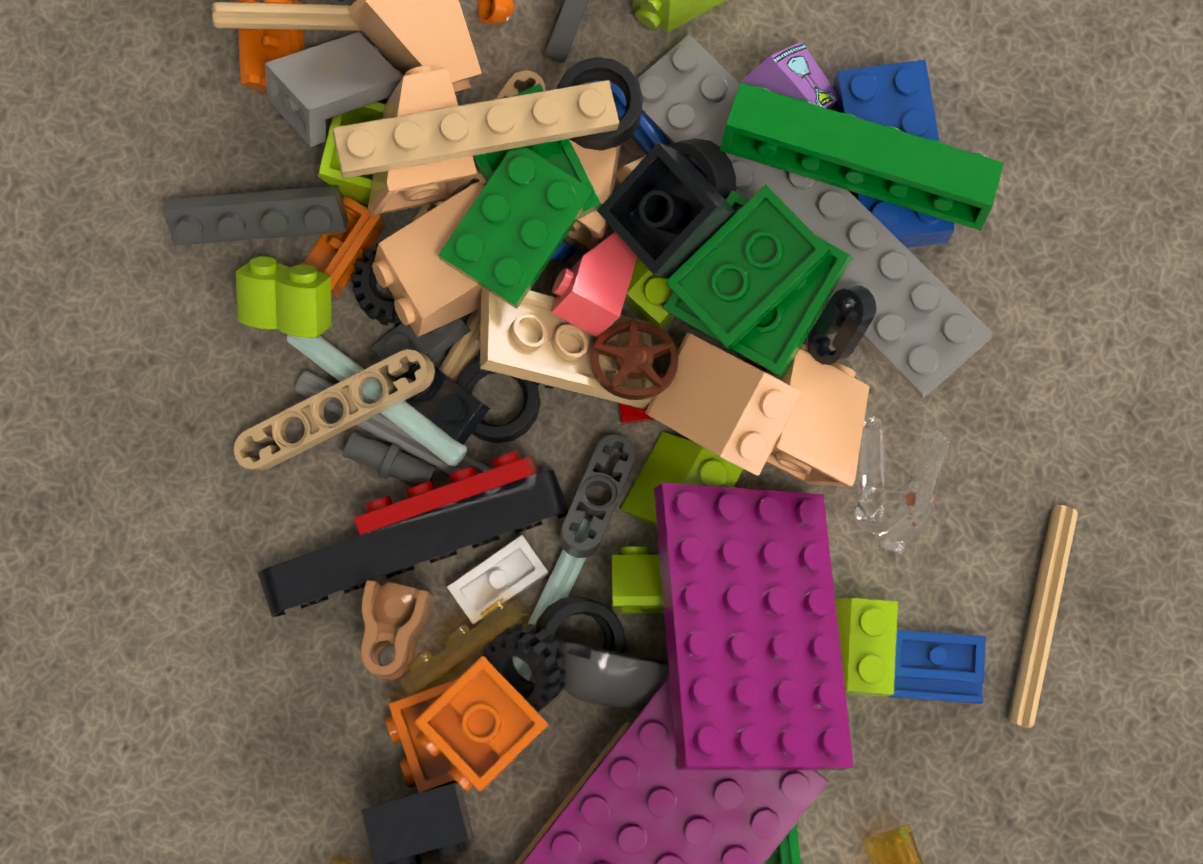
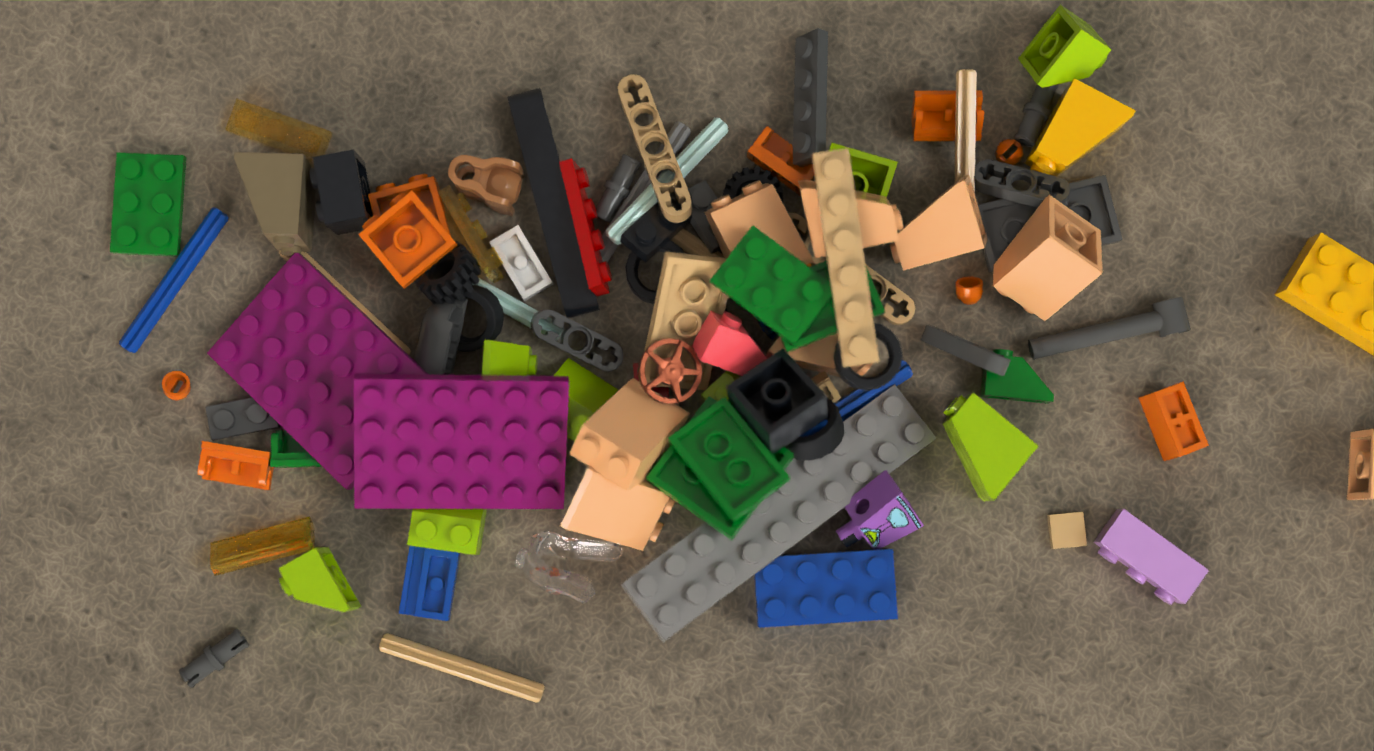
camera: 95 degrees right, 5 degrees up
(284, 297) = (743, 115): lime brick -> none
(328, 82) = (907, 158): light grey panel -> none
(848, 330) = (677, 532): black beam -> none
(861, 156) = (815, 556): green brick -> none
(955, 811) = (318, 581): none -> lime slope

